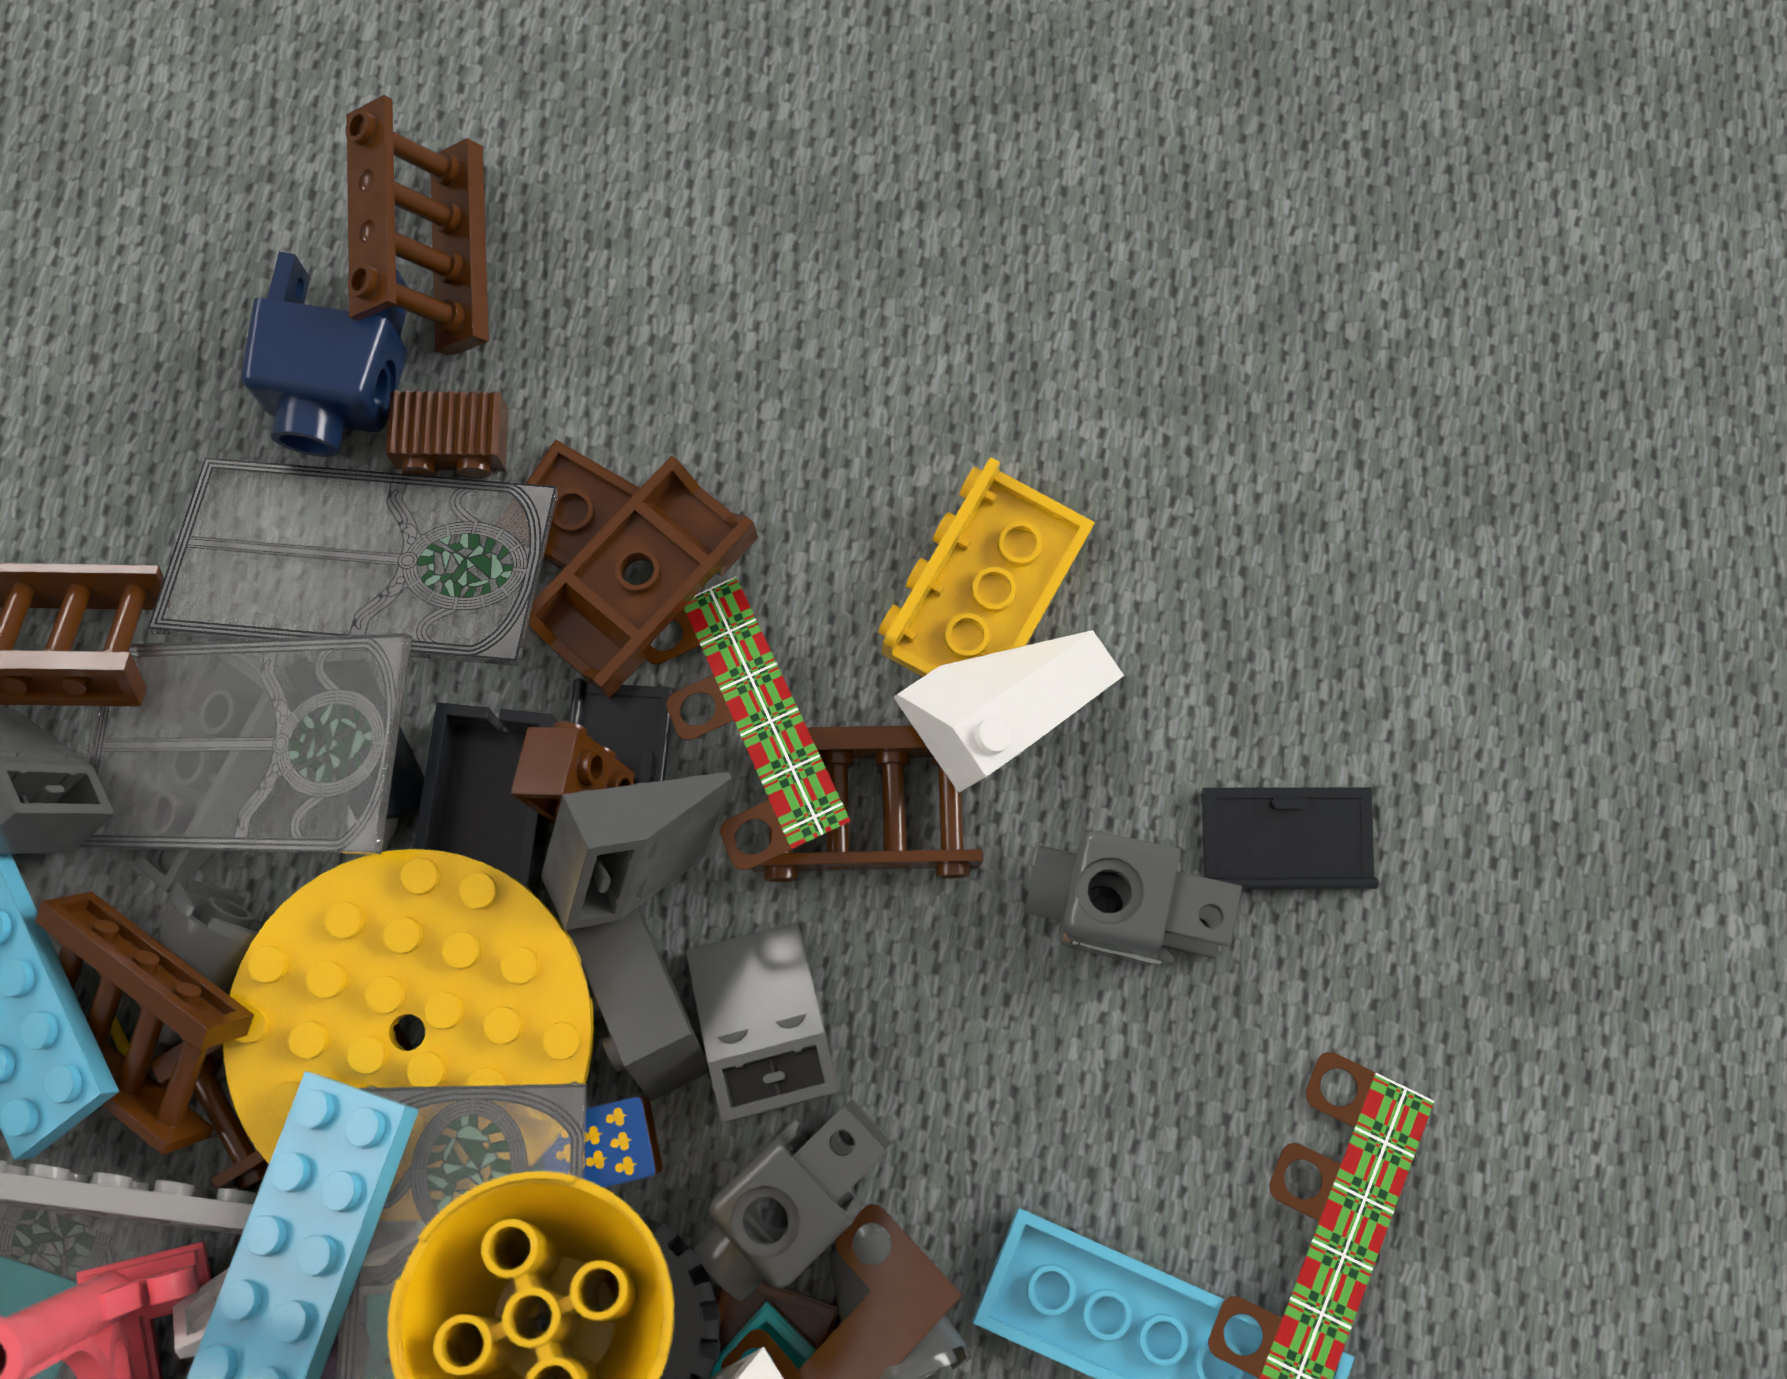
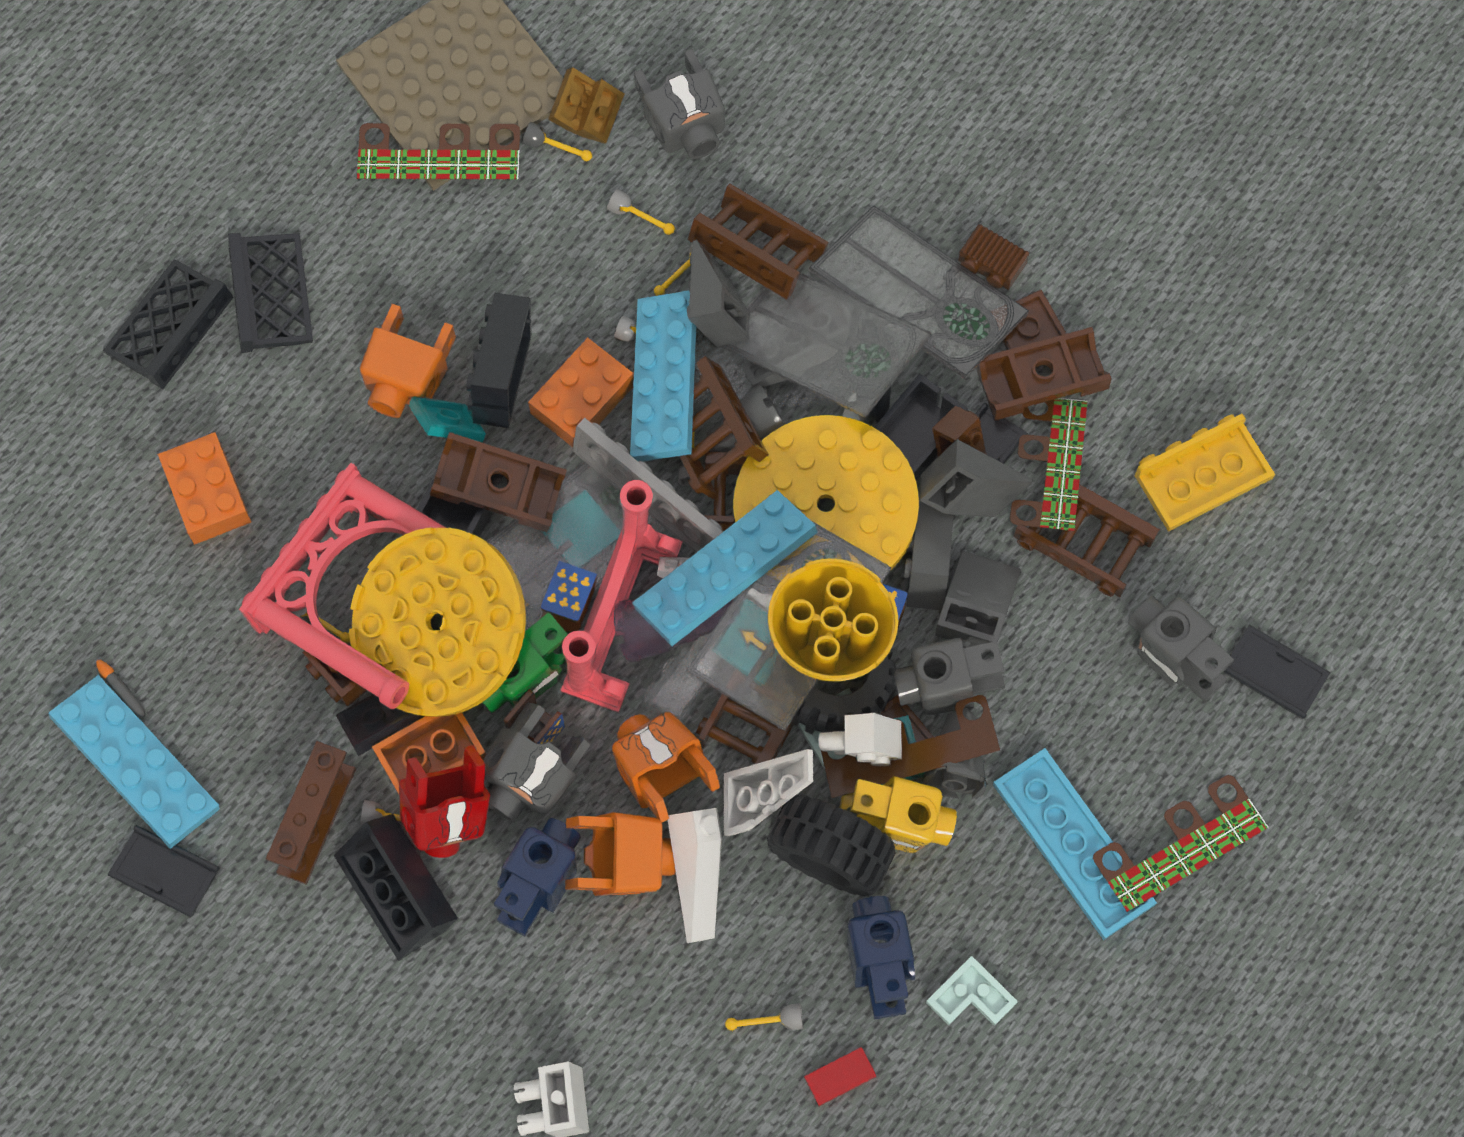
camera: 40 degrees right, 5 degrees down
(319, 365) = (955, 194): dark blue piece -> none
(456, 220) = (1052, 168): reddish brown fence -> none
(1001, 703) = (1175, 526): white wedge -> none

